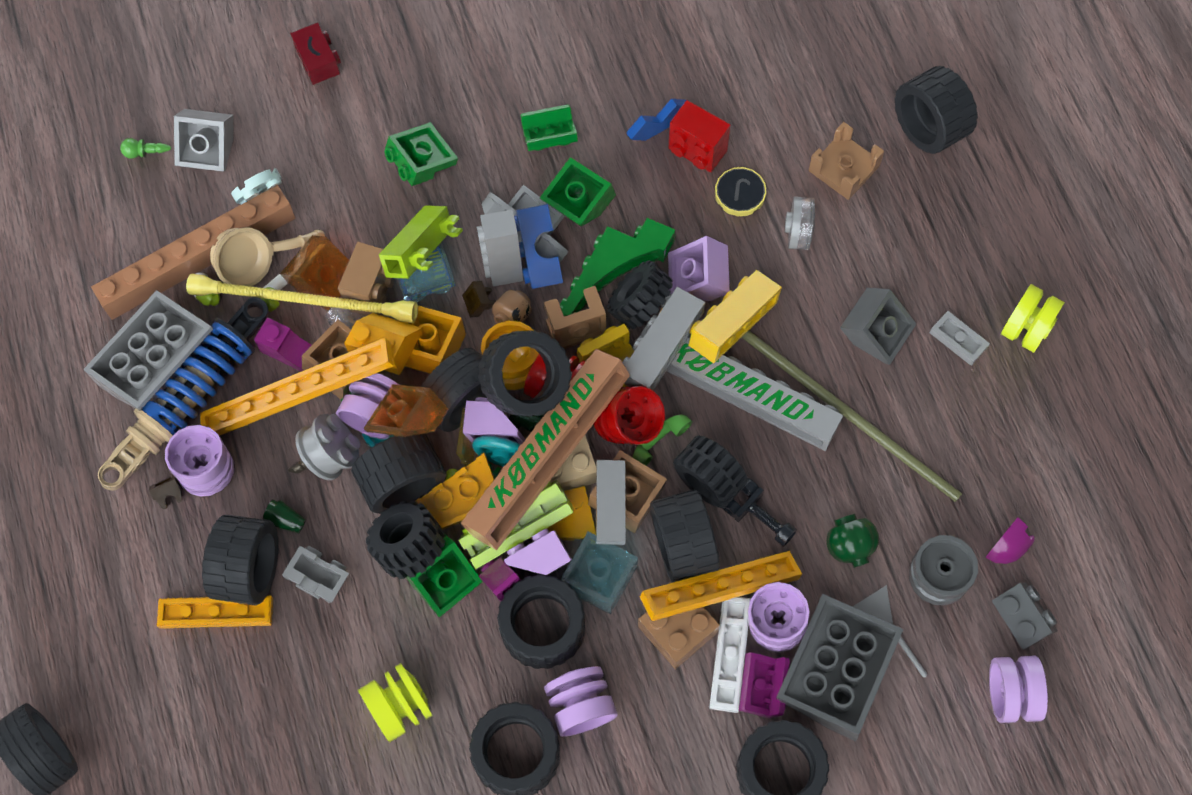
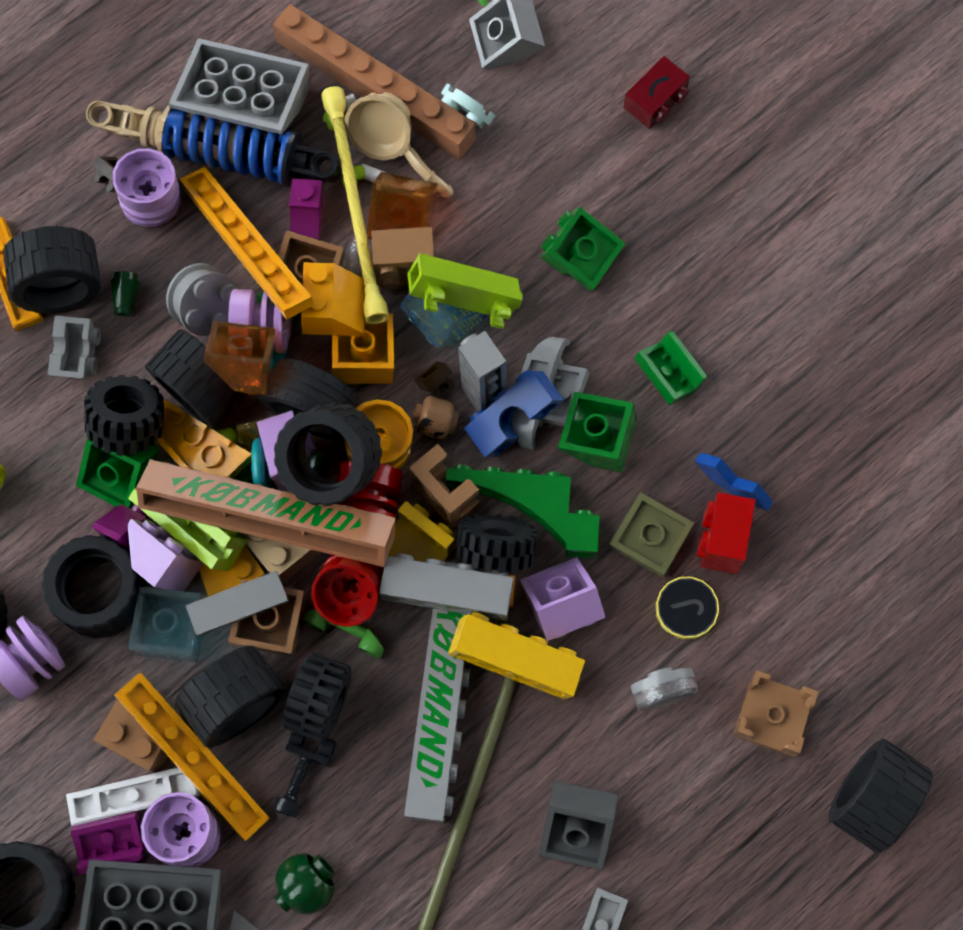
camera: 70 degrees right, 5 degrees up
(674, 193) = (651, 534): none -> olive plate

